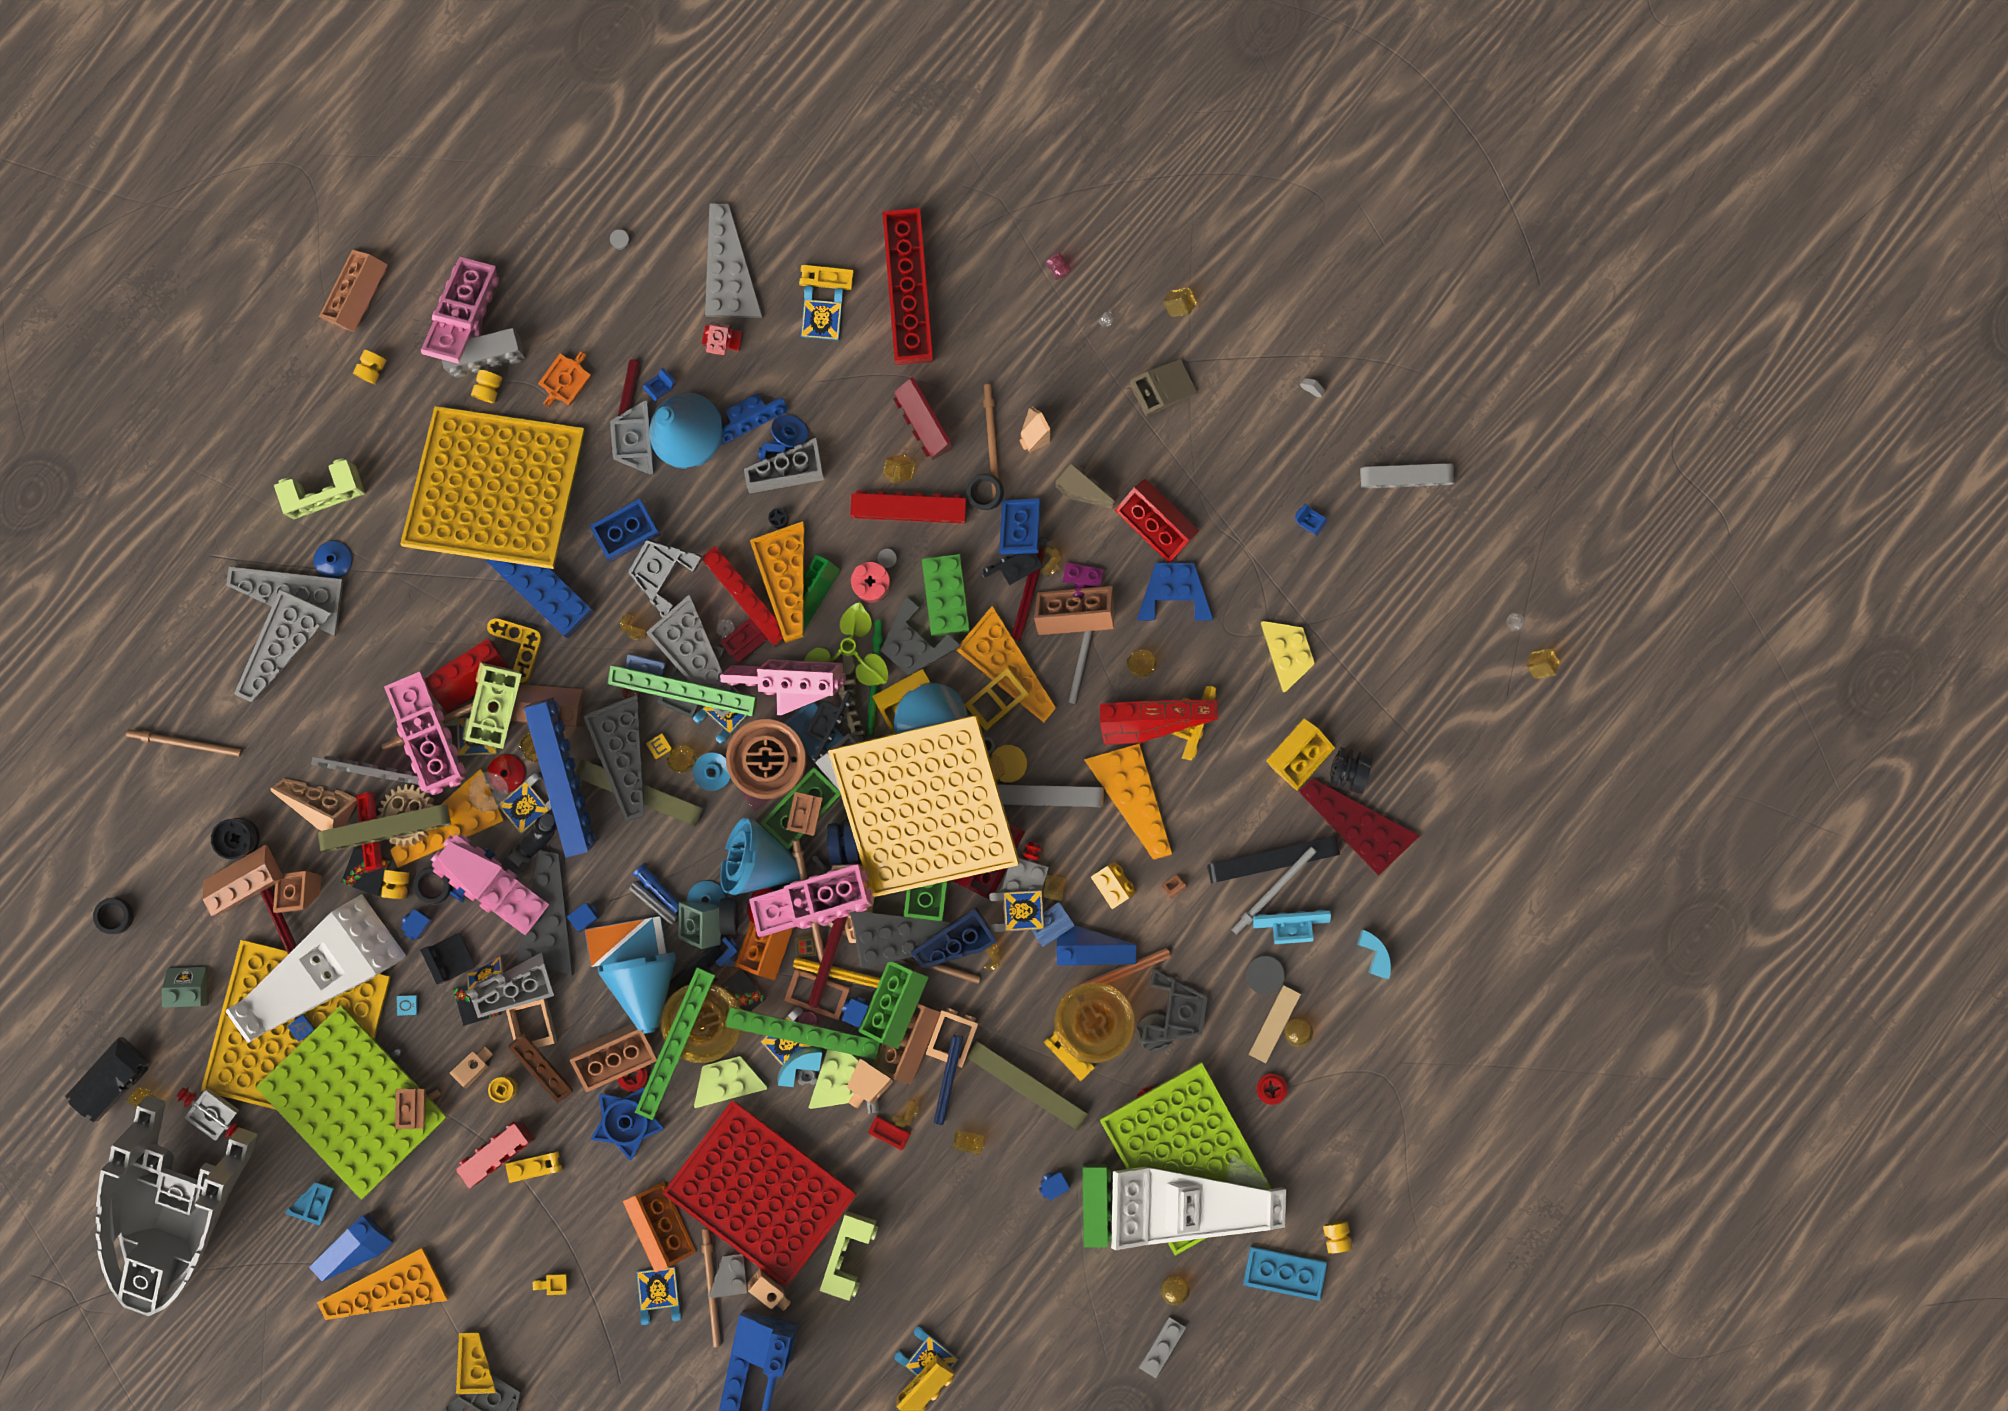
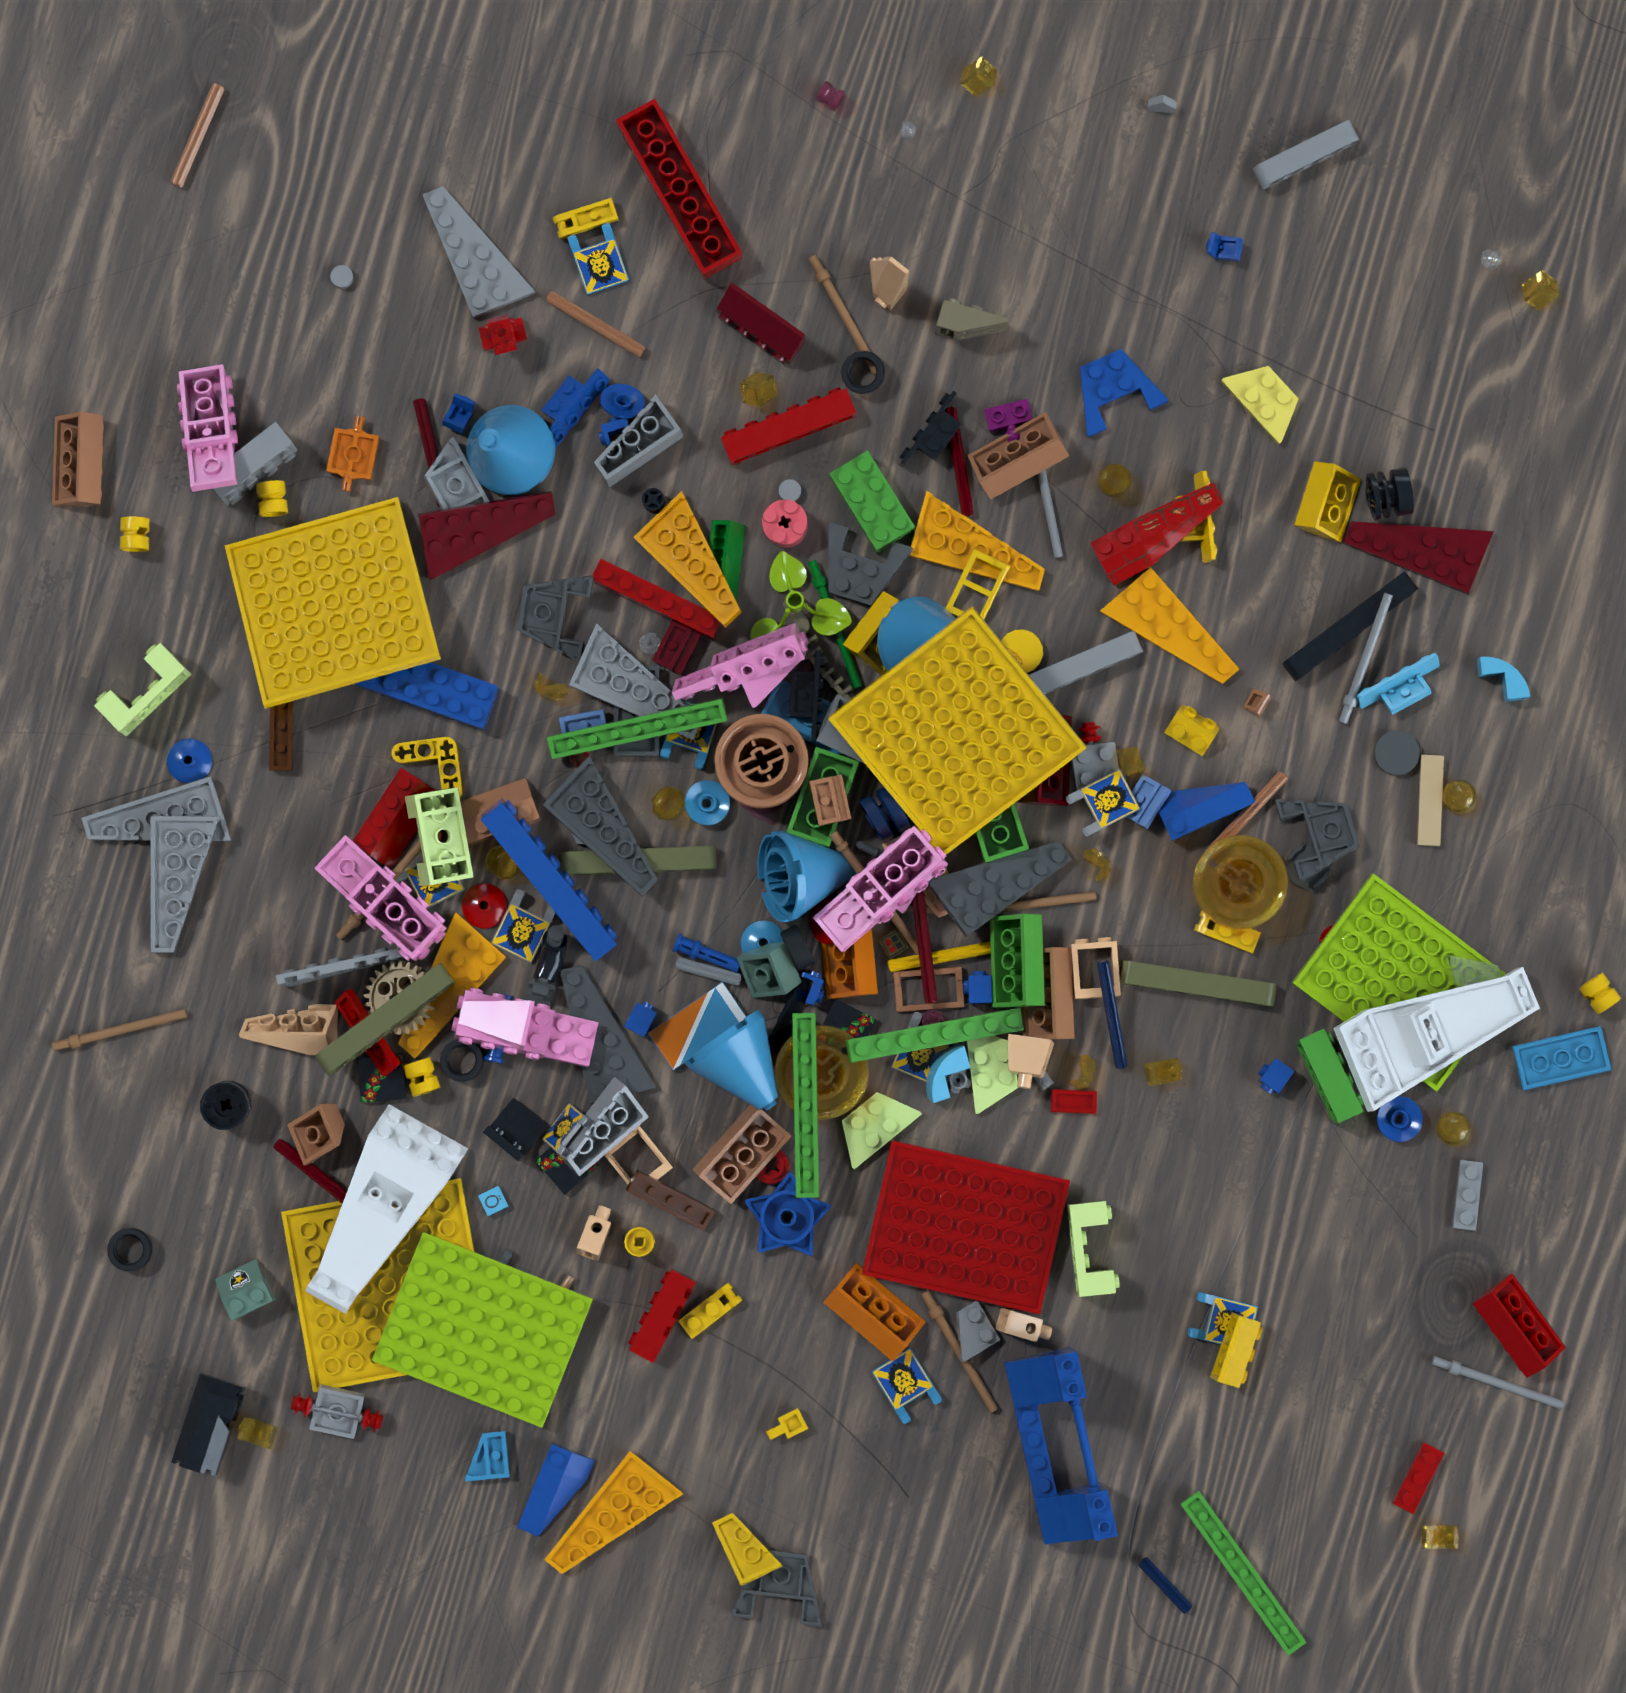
camera: 30 degrees left, 0 degrees up
(159, 1212) = (337, 1539): light grey piece -> none
(241, 881) = (252, 1148): nougat slope -> none
(301, 1027) = (391, 1275): blue tile -> none
(409, 574) = (281, 737): none -> reddish brown plate
(410, 1108) = (551, 1305): nougat plate -> none
(416, 924) = (463, 1109): blue brick -> none
(490, 781) = (489, 929): clear plate -> none
(557, 83) = (197, 135): none -> nougat axle
(622, 478) = (469, 530): none -> dark red wing
(624, 530) = (494, 586): blue brick -> none
(659, 746) = (637, 802): yellow tile -> none
(796, 362) = (595, 323): none -> nougat axle
(960, 938) = (1056, 858): dark blue wedge -> none
(1020, 526) = (918, 392): blue plate -> none
(1051, 567) = (971, 421): clear yellow bracket -> none
(1138, 1273) = (1408, 1127): none -> blue dish
(1156, 520) = (1061, 321): red slope -> none
(1162, 387) = (1001, 176): dark tan slope -> none
(1279, 1094) = (1469, 871): red gear -> none

